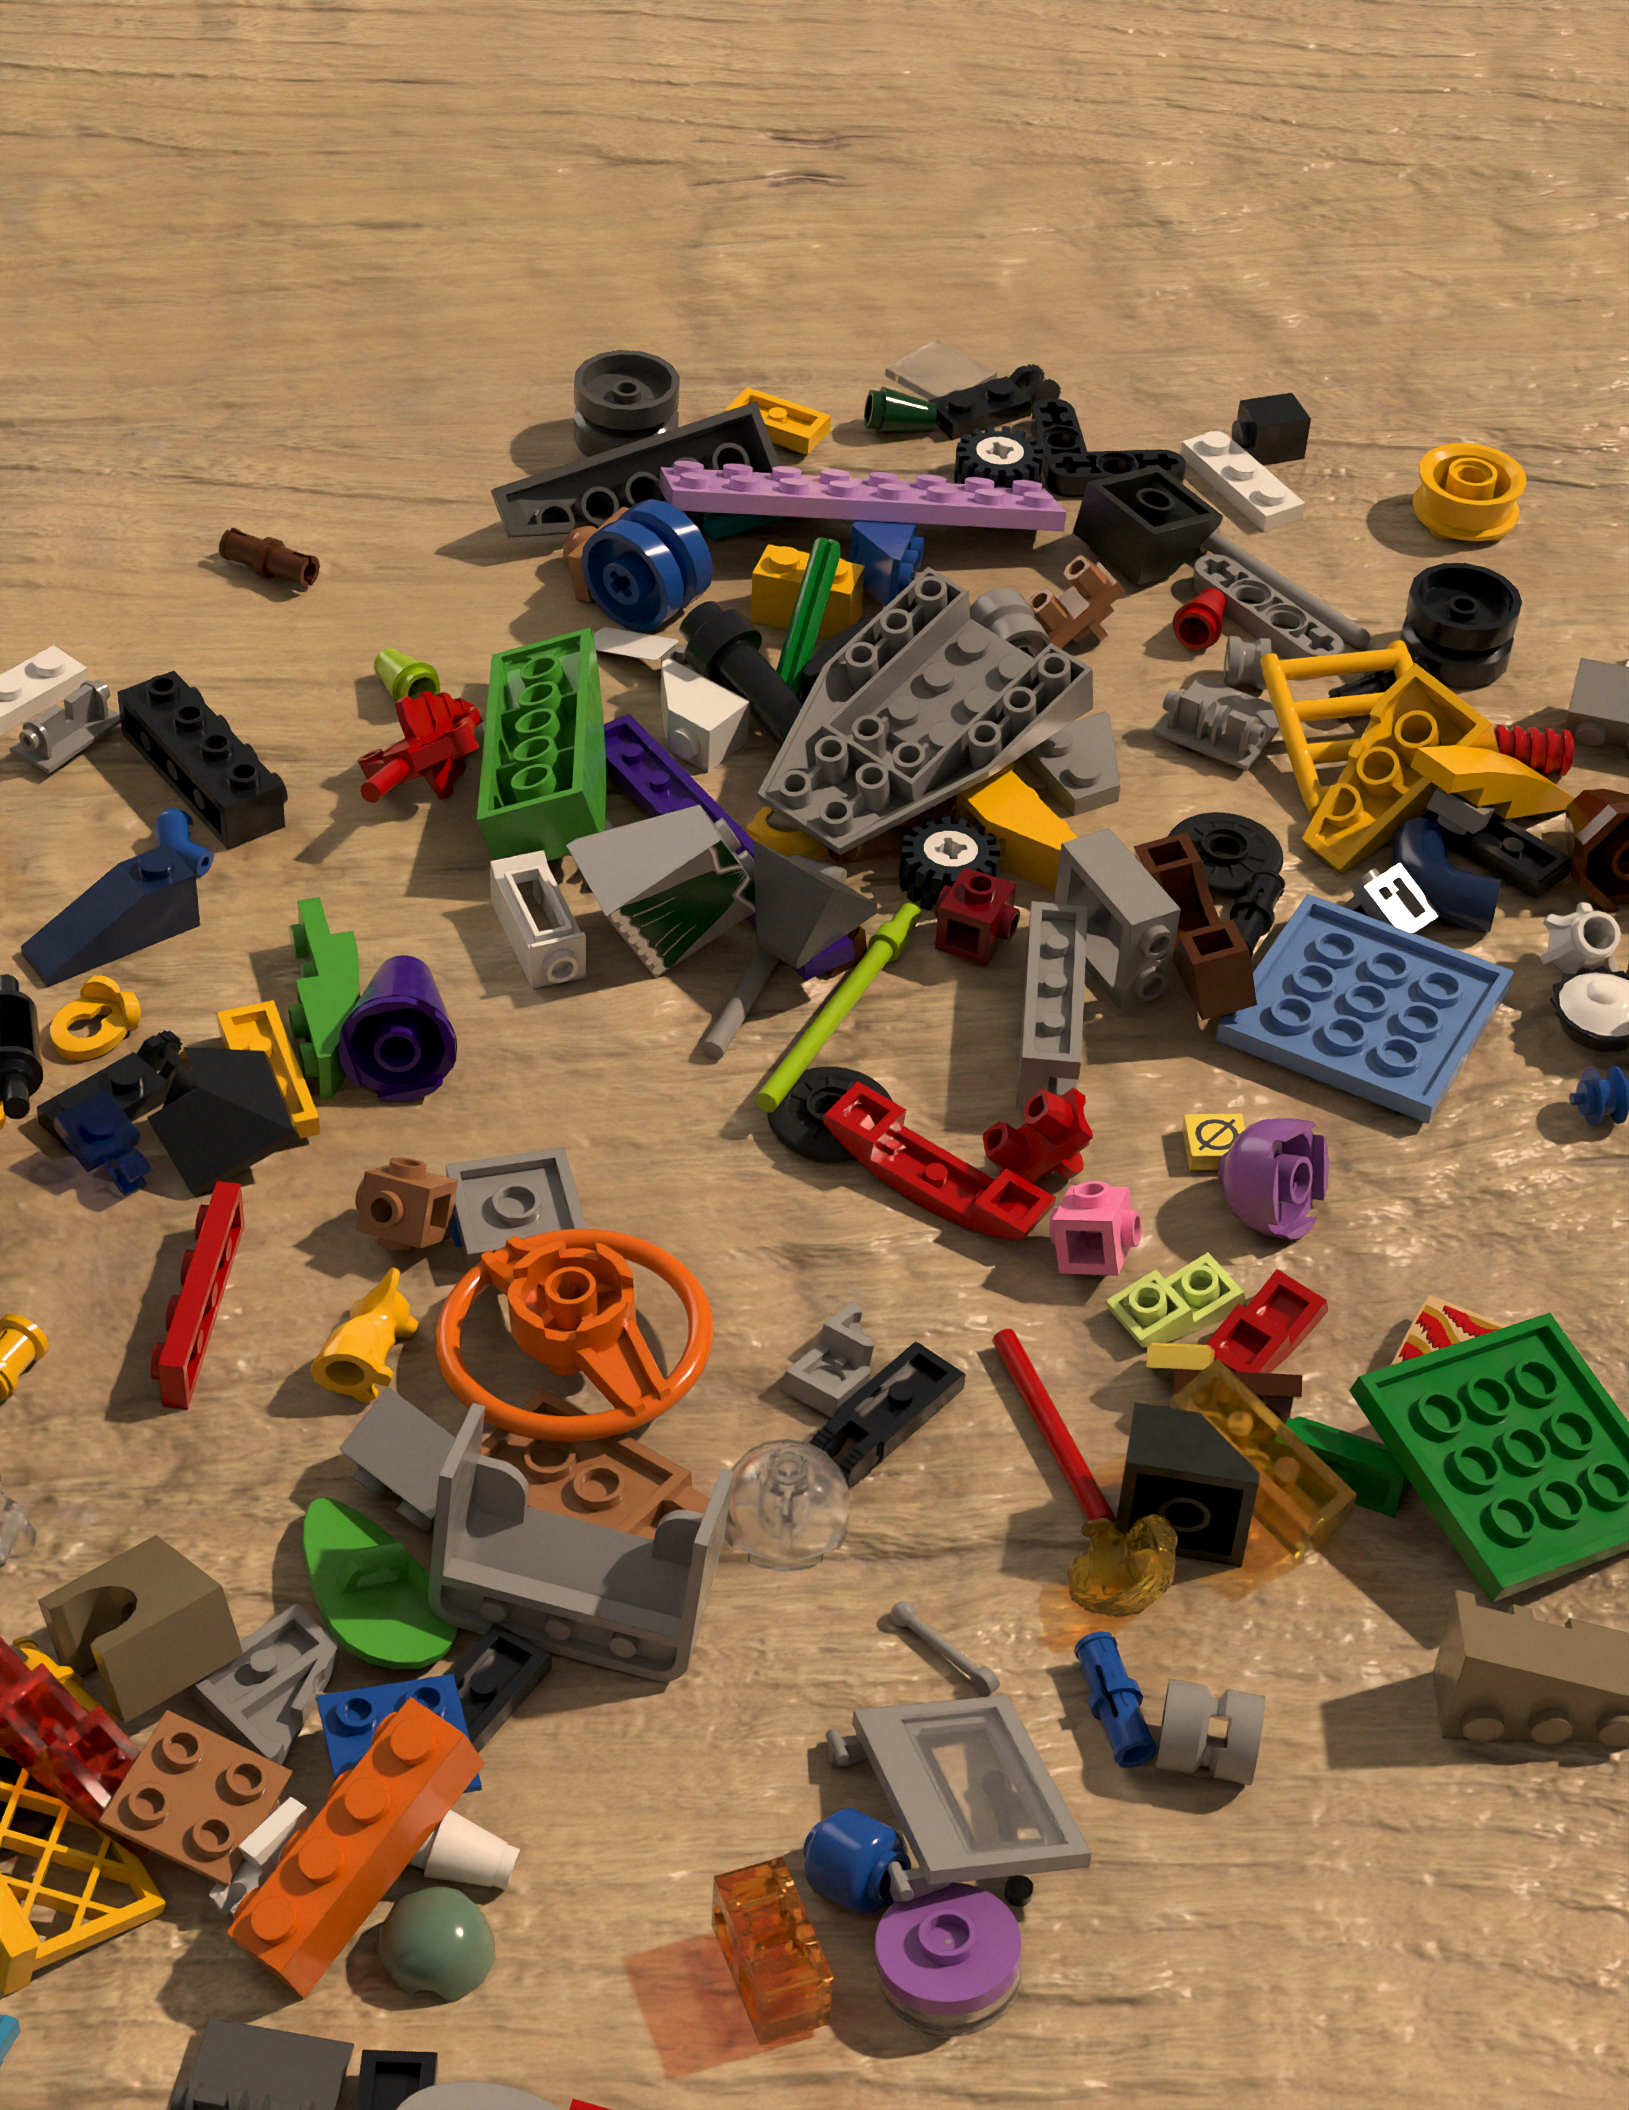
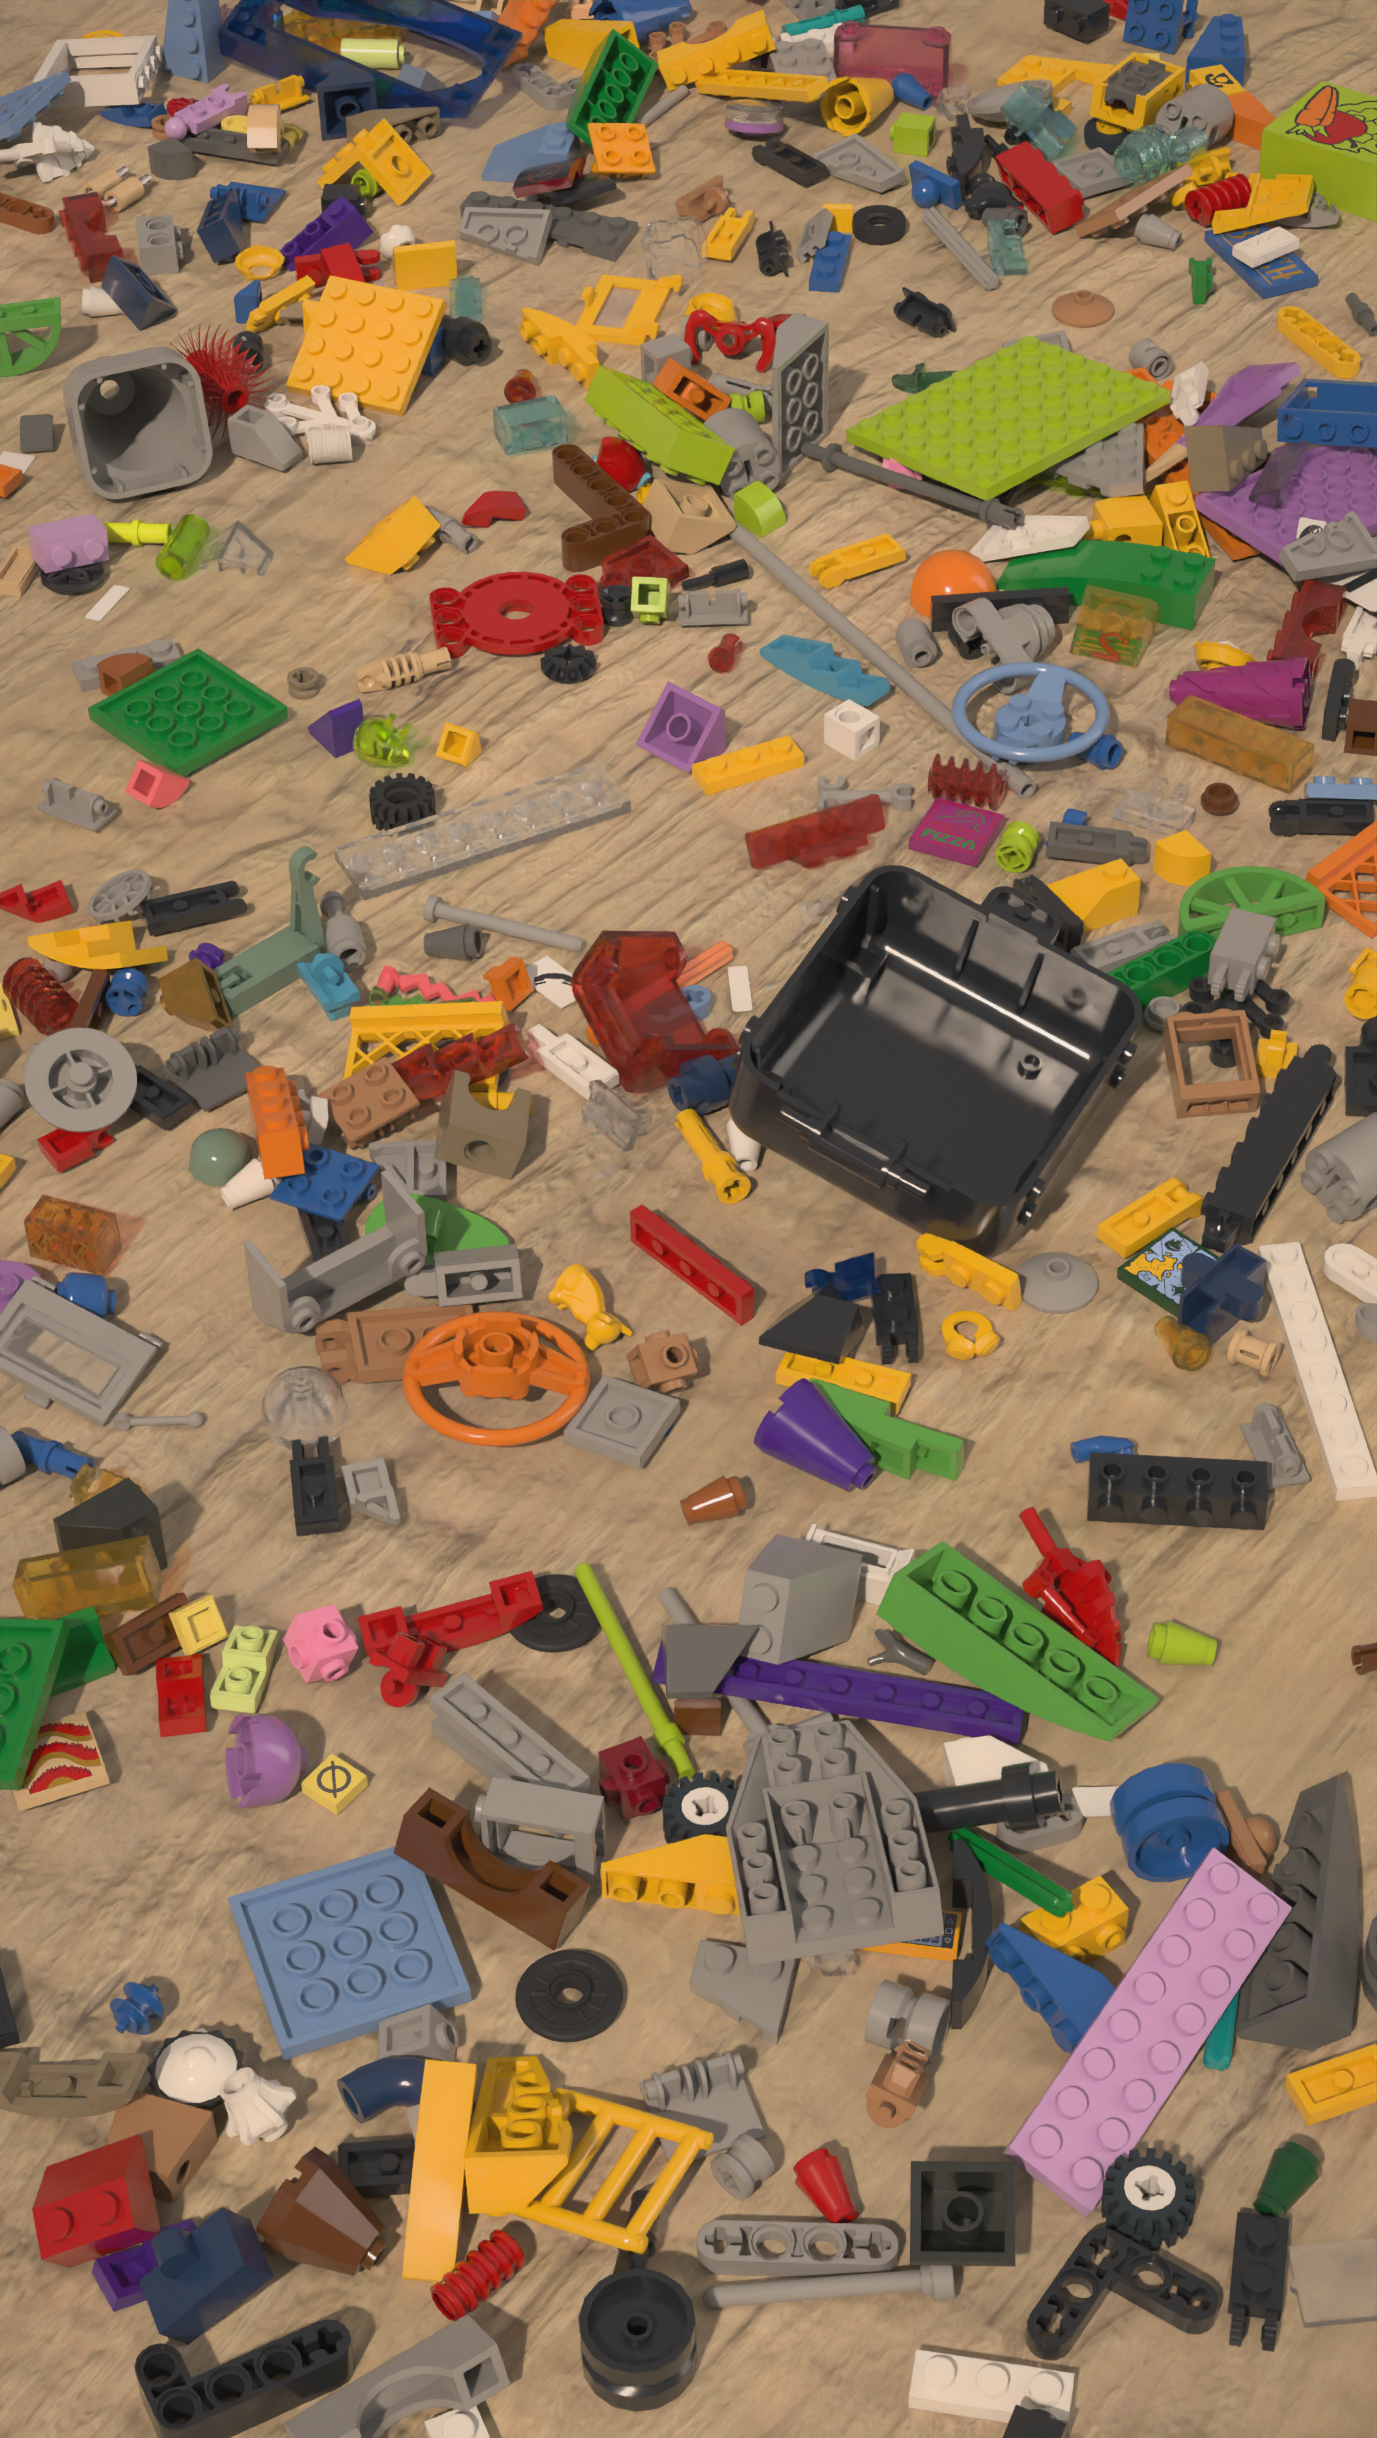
camera: 135 degrees right, 0 degrees up
(118, 915) = (1047, 1385): dark blue slope -> none
(555, 1070) = (714, 1501): none -> dark orange cone
(1052, 1426) = (237, 1557): red bar -> none
(1254, 910) = (489, 1952): black pin -> none

